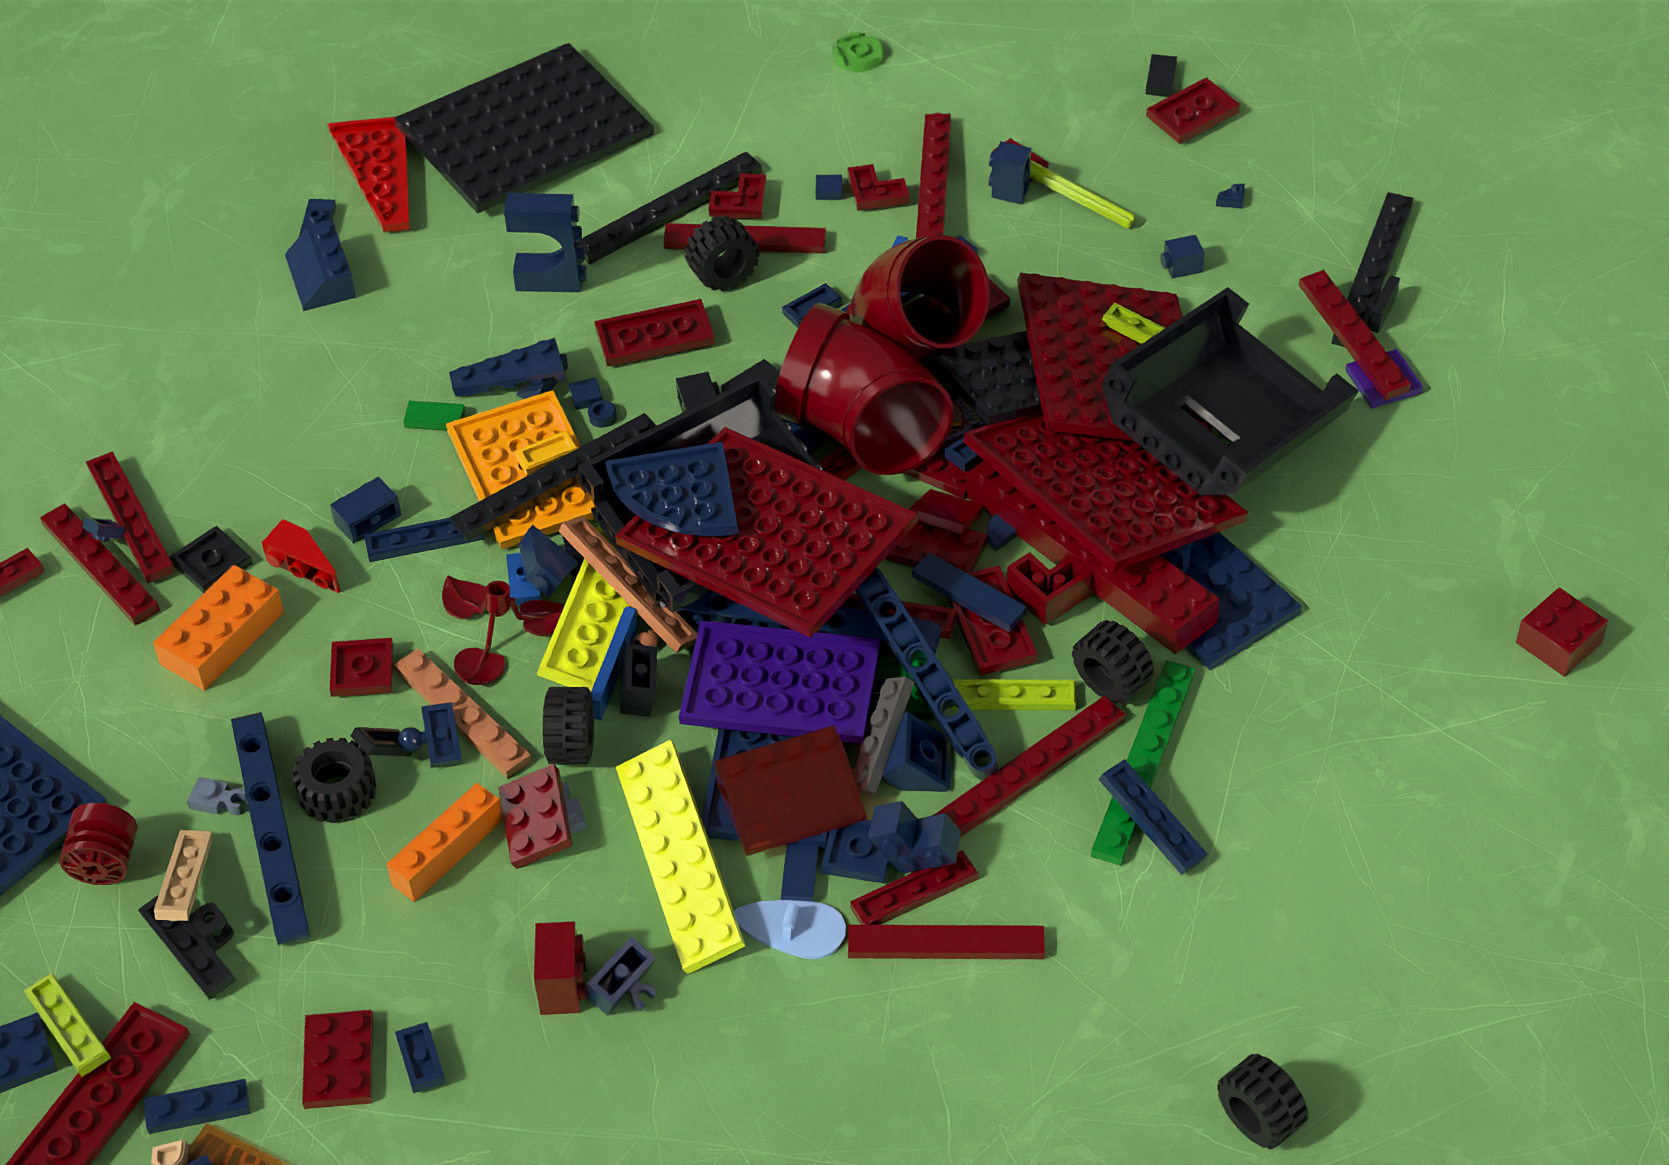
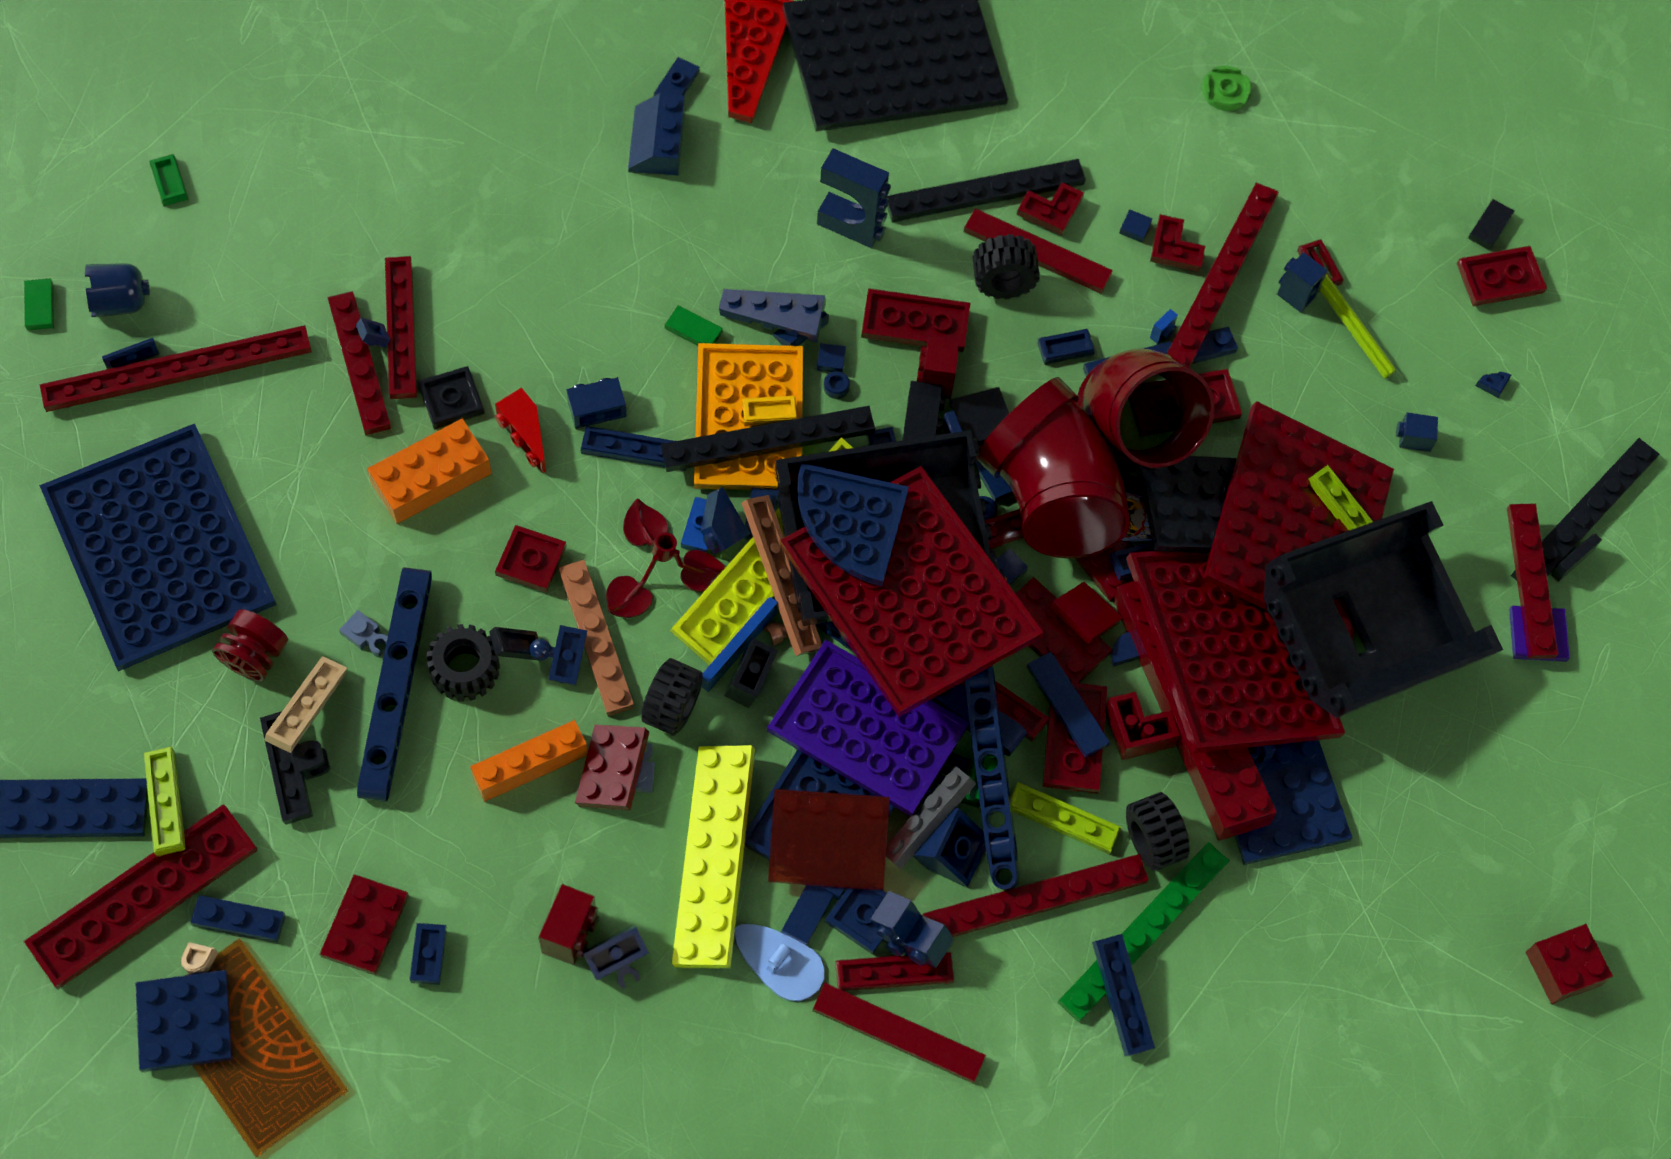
camera: 15 degrees right, 15 degrees up
(697, 354) = (939, 364): none -> dark red brick

